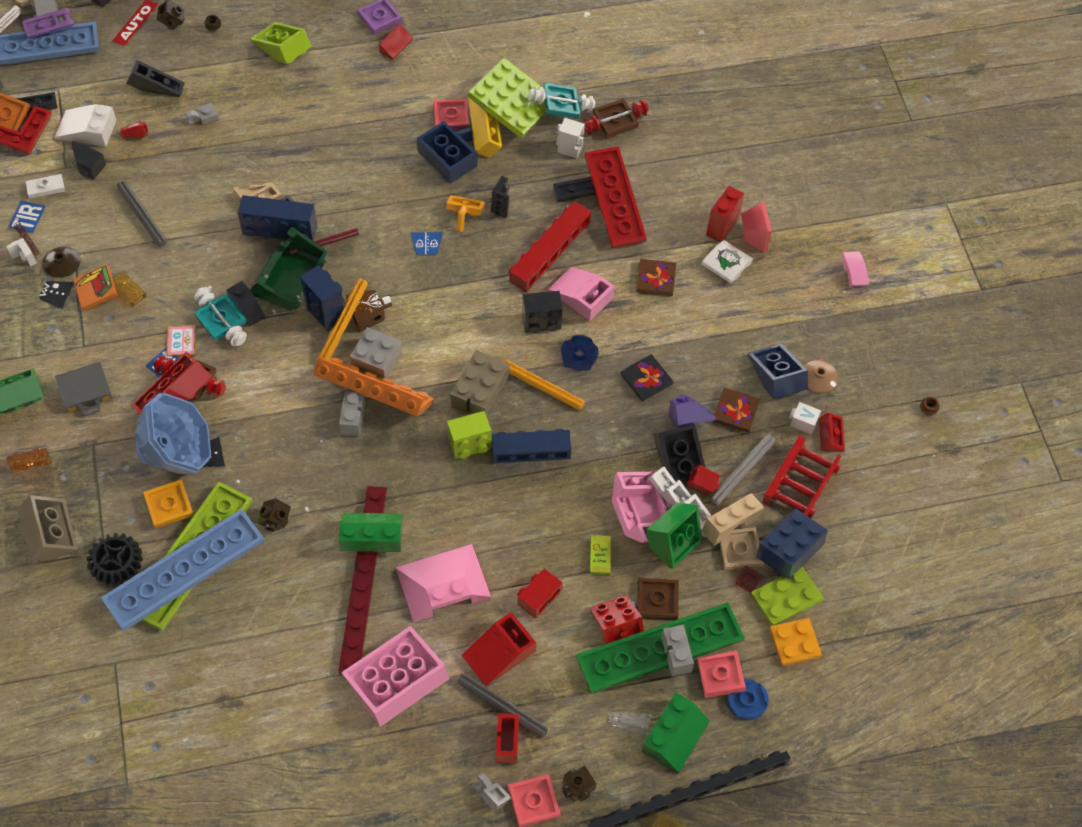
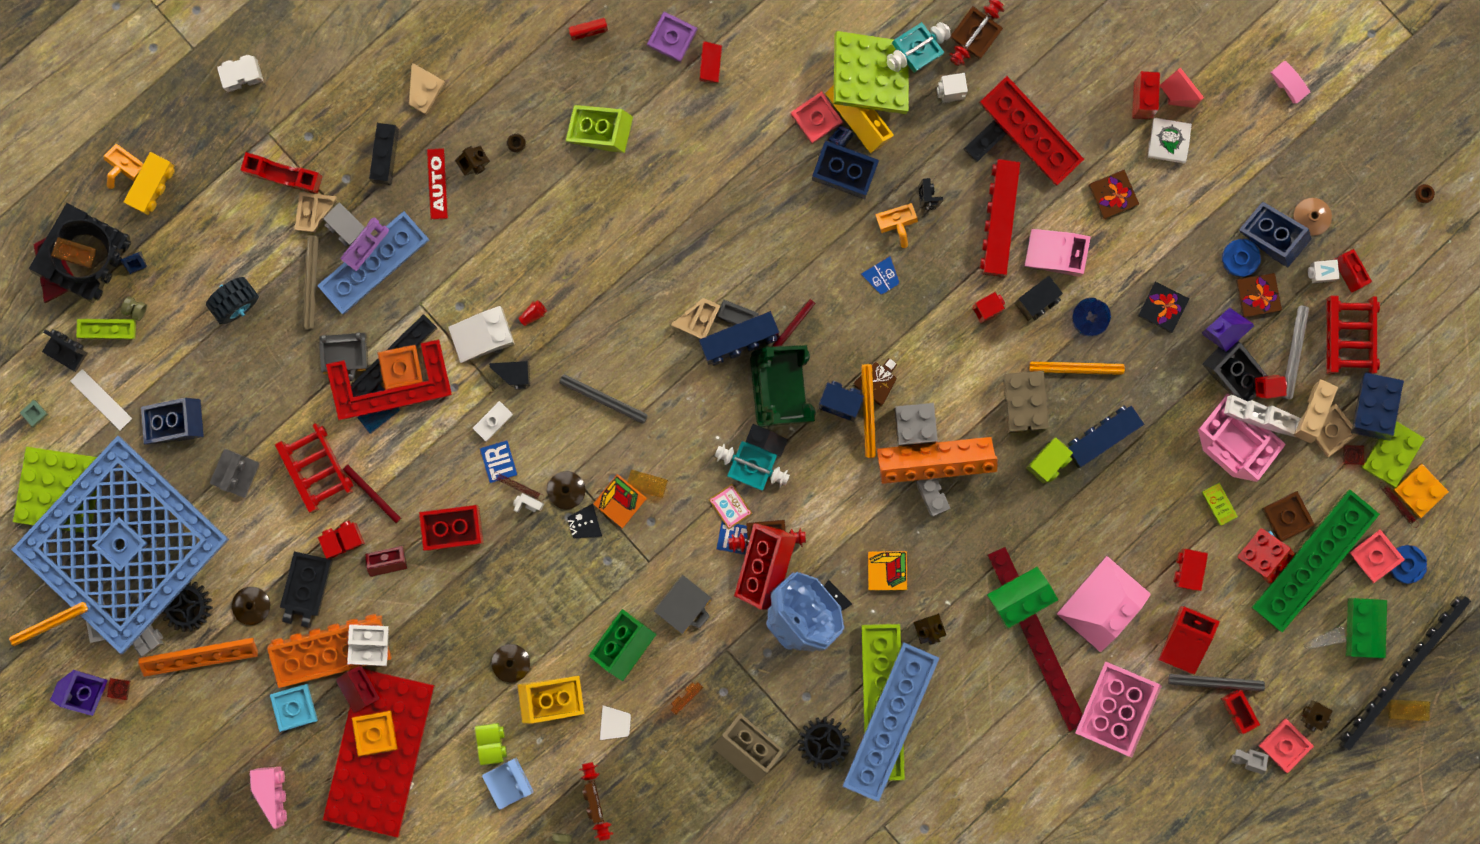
camera: 20 degrees left, 25 degrees up
(153, 80) = (511, 246): black slope -> none
(168, 504) = (832, 668): light orange plate -> none
(204, 113) = (583, 254): light grey plate -> none
(273, 454) = (887, 570): none -> tile
(496, 297) = (988, 307): none -> red piece
(675, 533) = (1277, 455): green slope -> none
(680, 656) = (1331, 554): light grey piece -> none
(737, 375) = (1241, 258): none -> blue tile
(769, 642) = (1399, 504): none -> dark red piece

